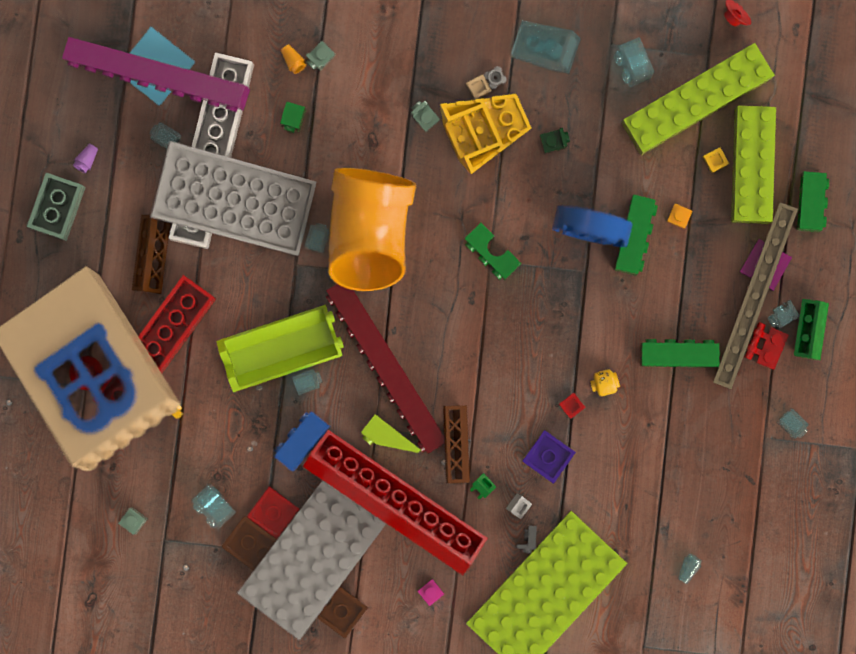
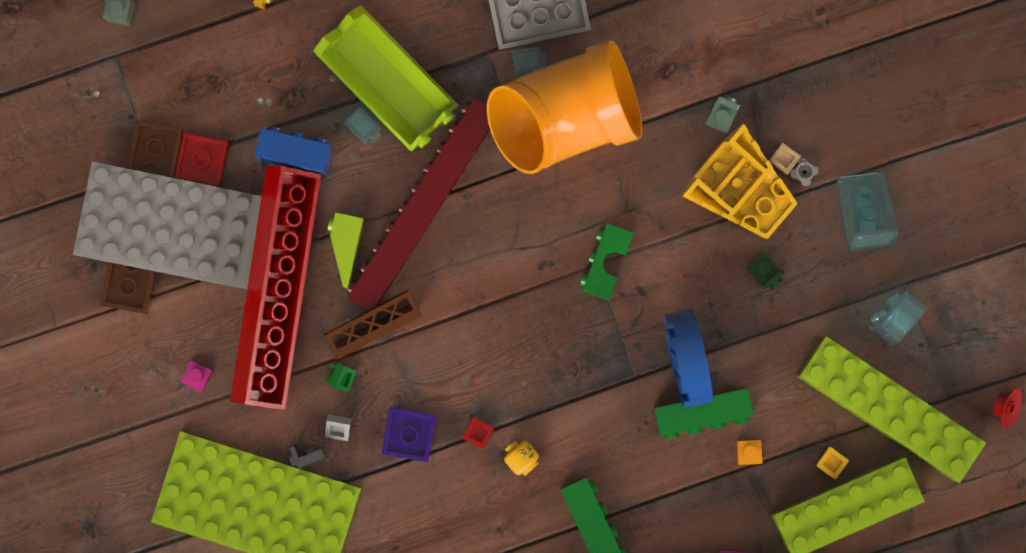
camera: 65 degrees right, 0 degrees up
(213, 506) = (175, 88): clear light blue brick -> none

